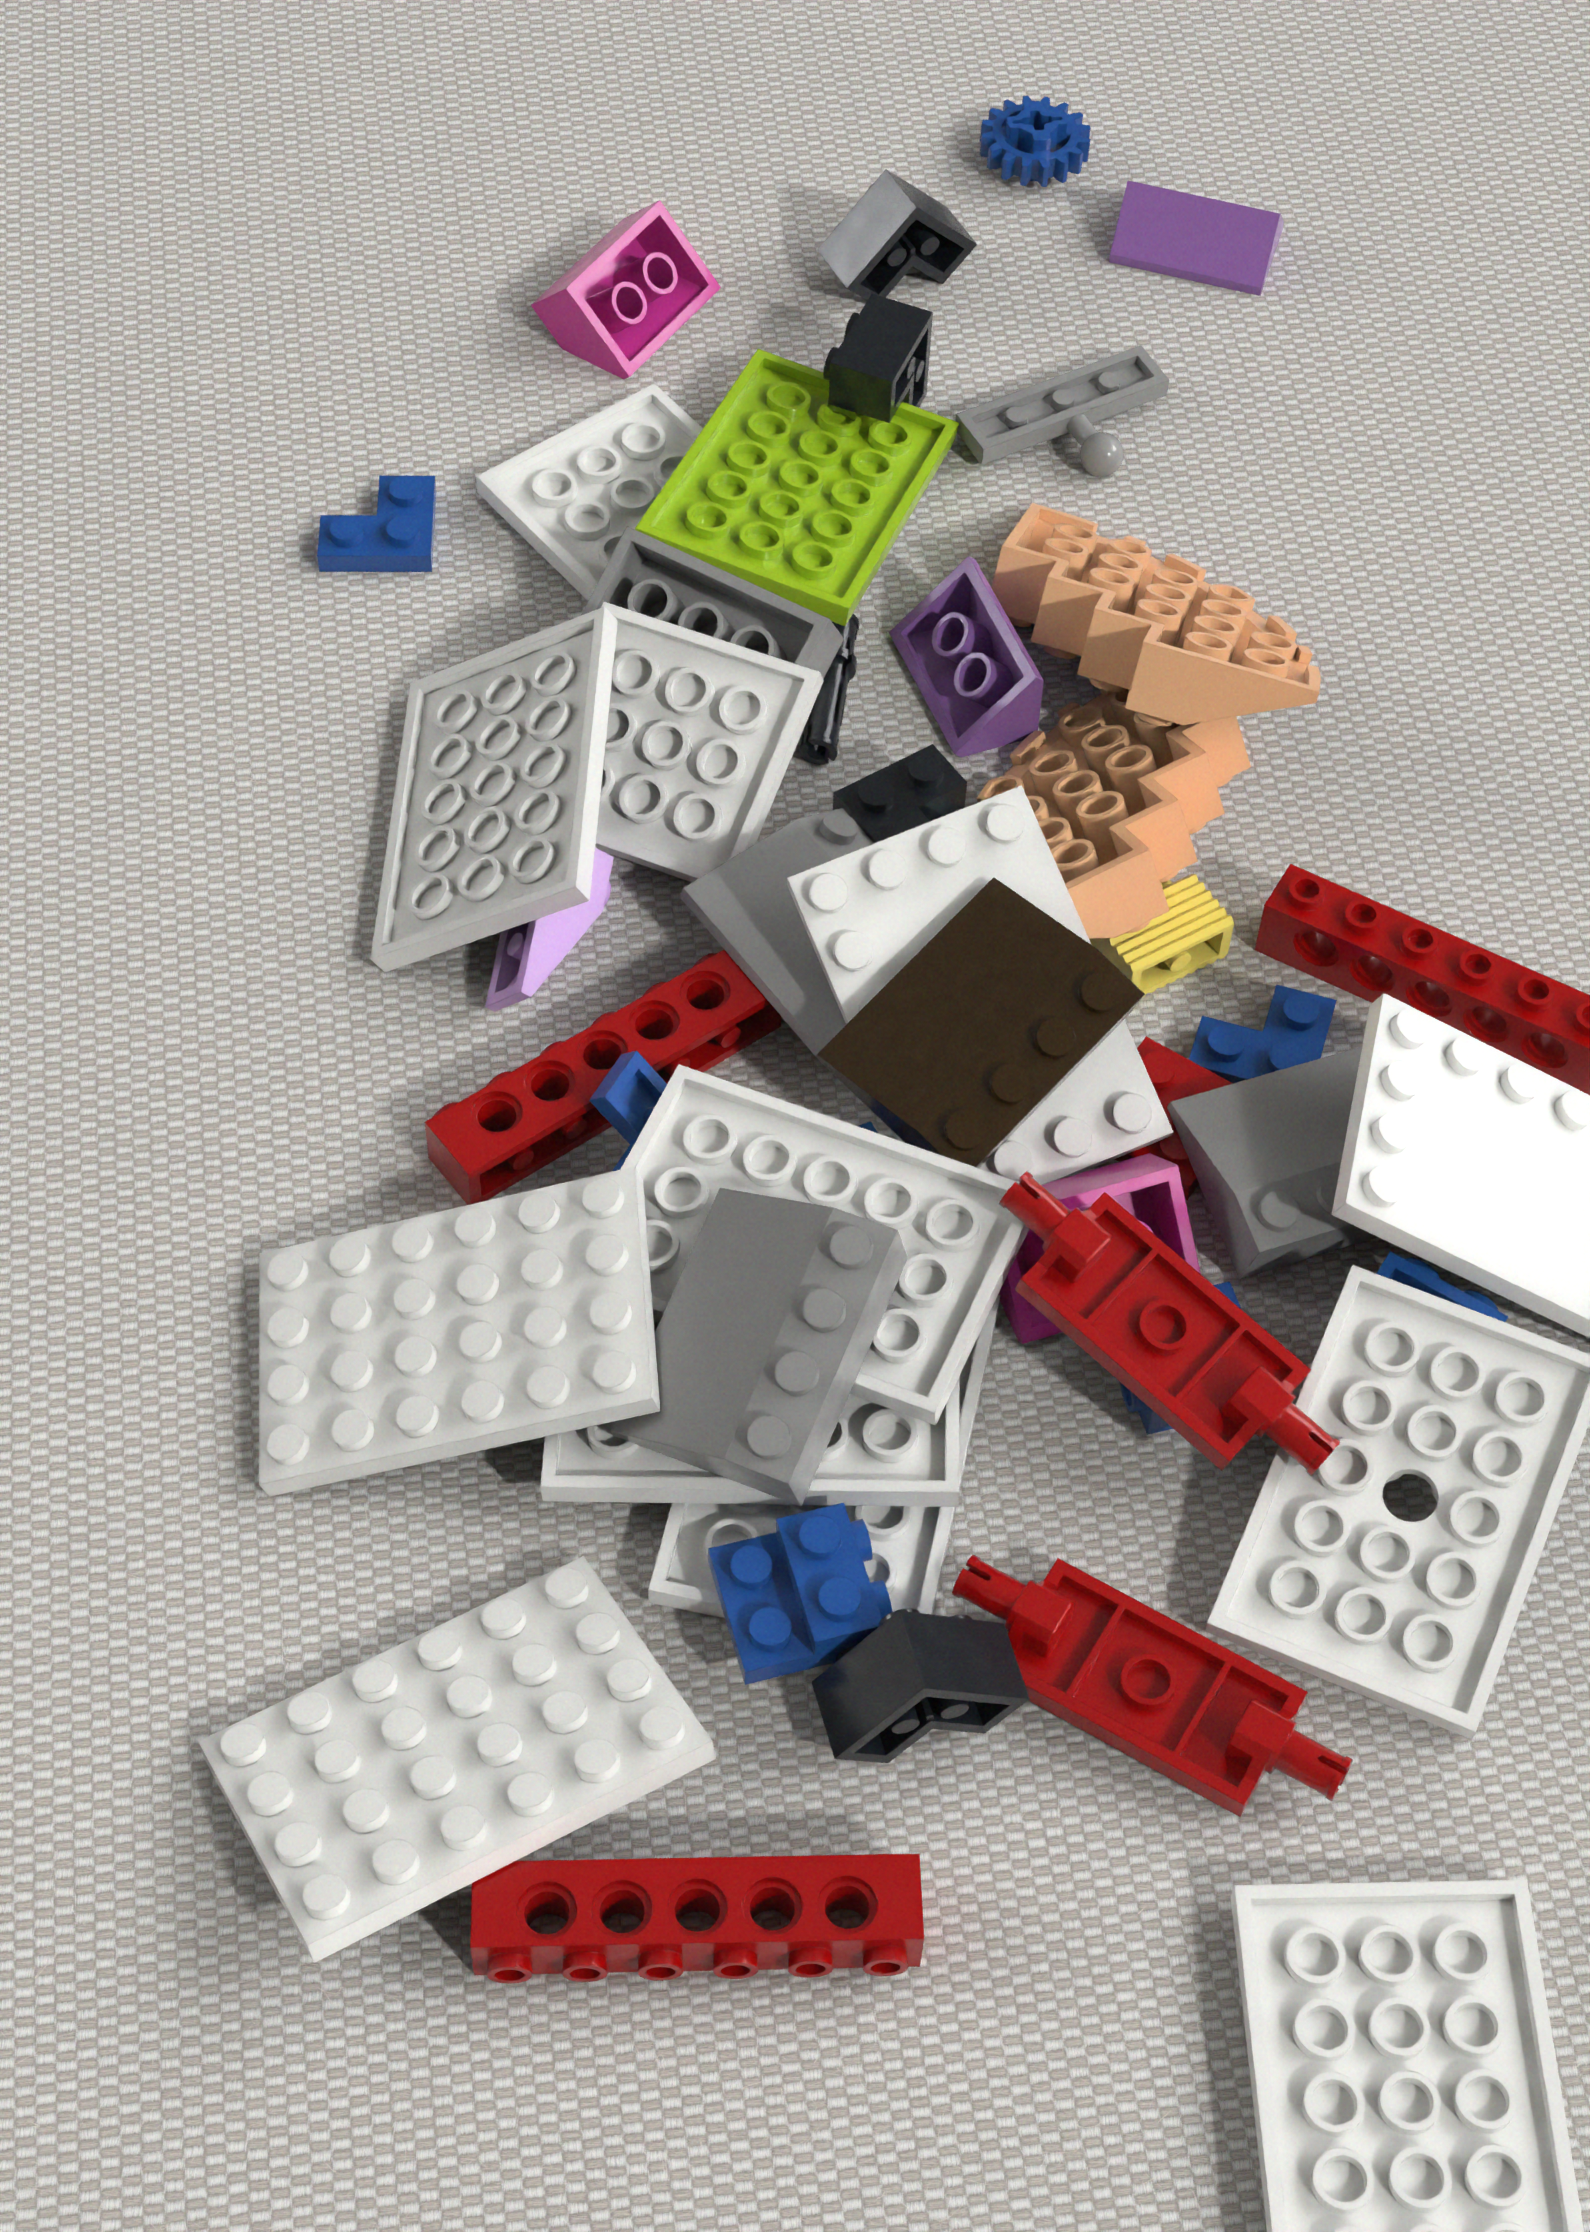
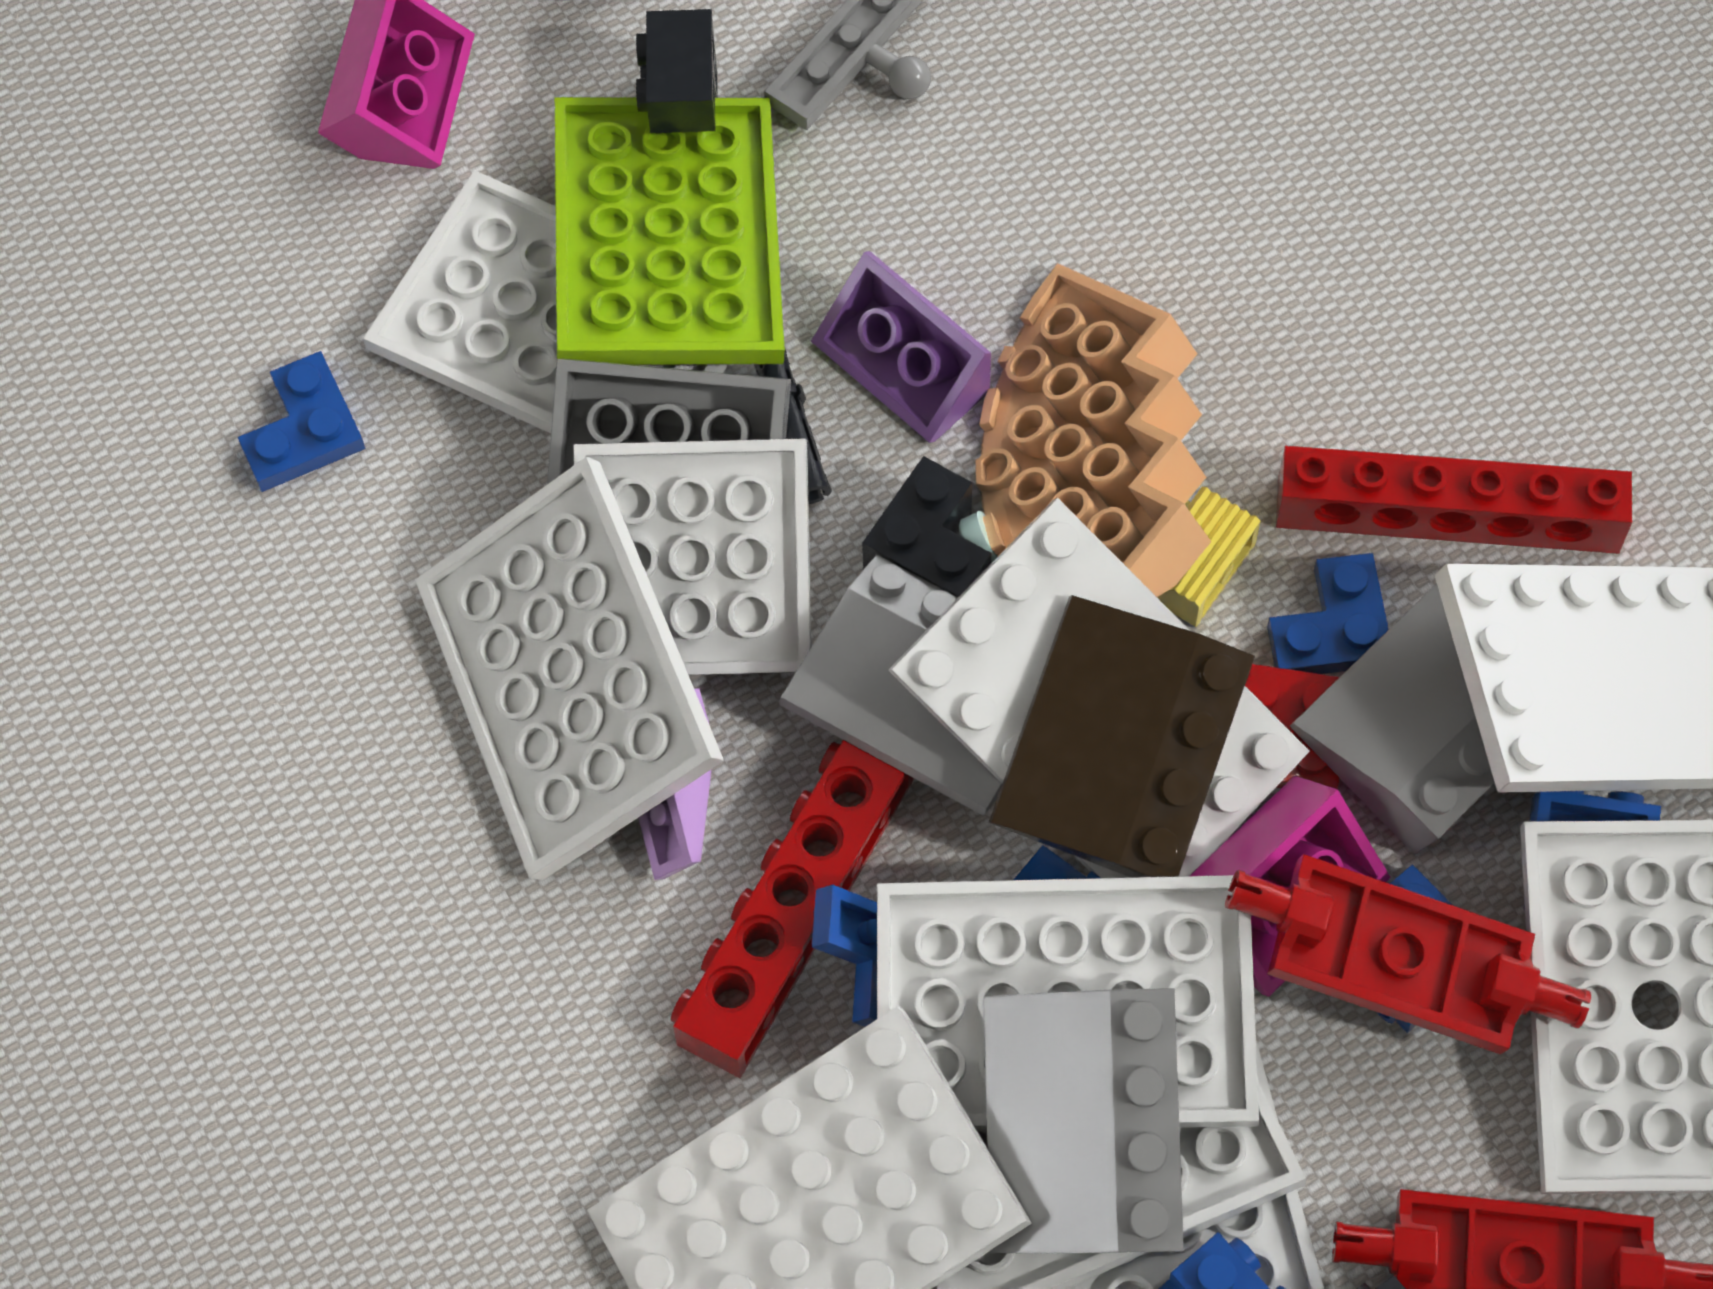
camera: 20 degrees left, 10 degrees up
(1148, 624) = (1052, 249): light nougat brick -> none

